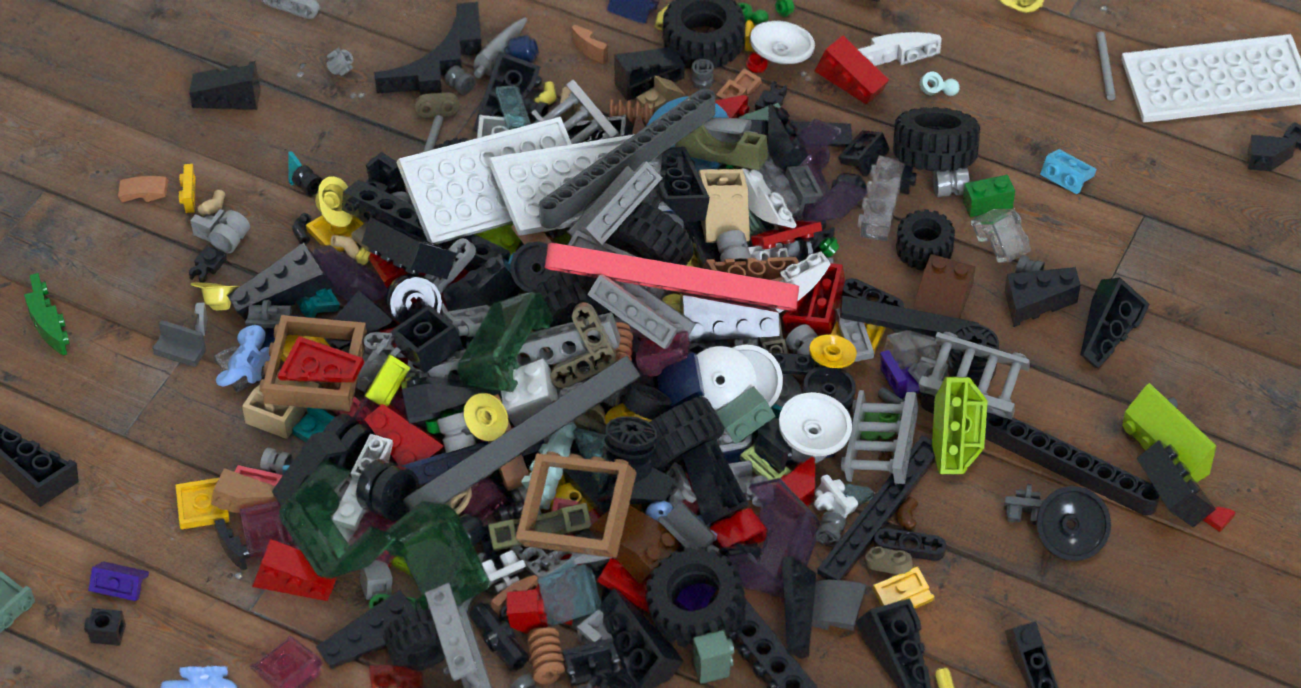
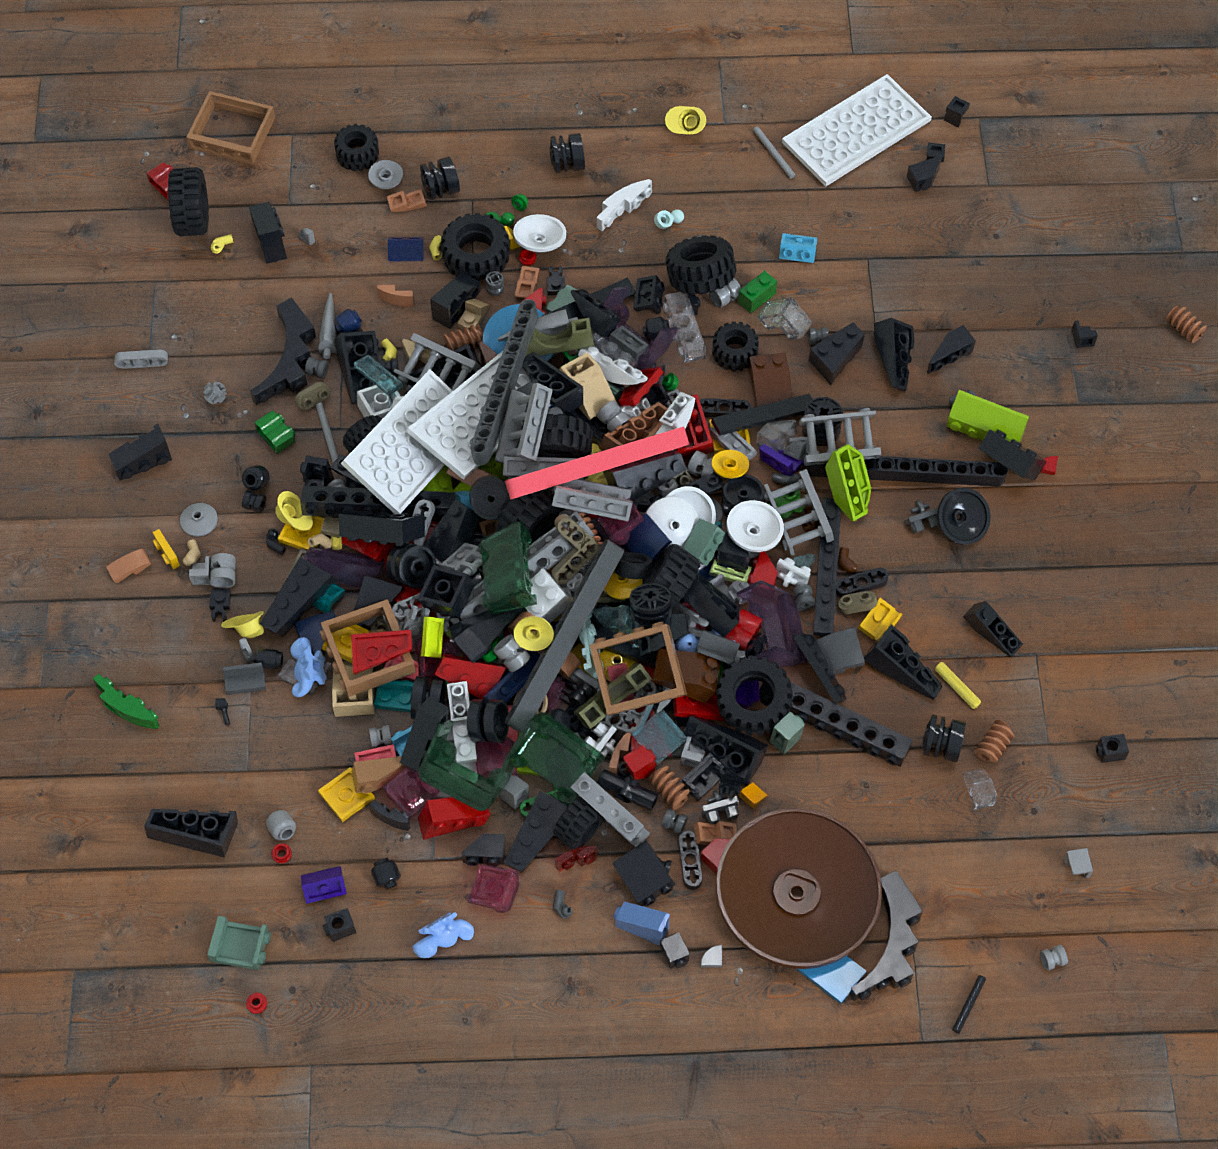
camera: 30 degrees left, 10 degrees up
(95, 525) = (281, 848): none -> red plate
(115, 501) = (281, 825): none -> light grey head
(139, 358) = (221, 704): none -> black hand
(187, 598) = (385, 873): none -> black head
(217, 335) = (269, 658): none -> black brick
(243, 176) = (198, 526): none -> light grey dish
(266, 314) = (304, 626): dark grey hips -> none
(293, 164) = (236, 495): teal slope -> none
(305, 624) = (487, 850): none -> black slope
(323, 157) = (255, 477): none -> black head
(374, 123) = (274, 431): none -> green brick
(851, 71) = (602, 235): red wedge -> none
(1182, 343) = (955, 345): none -> black slope

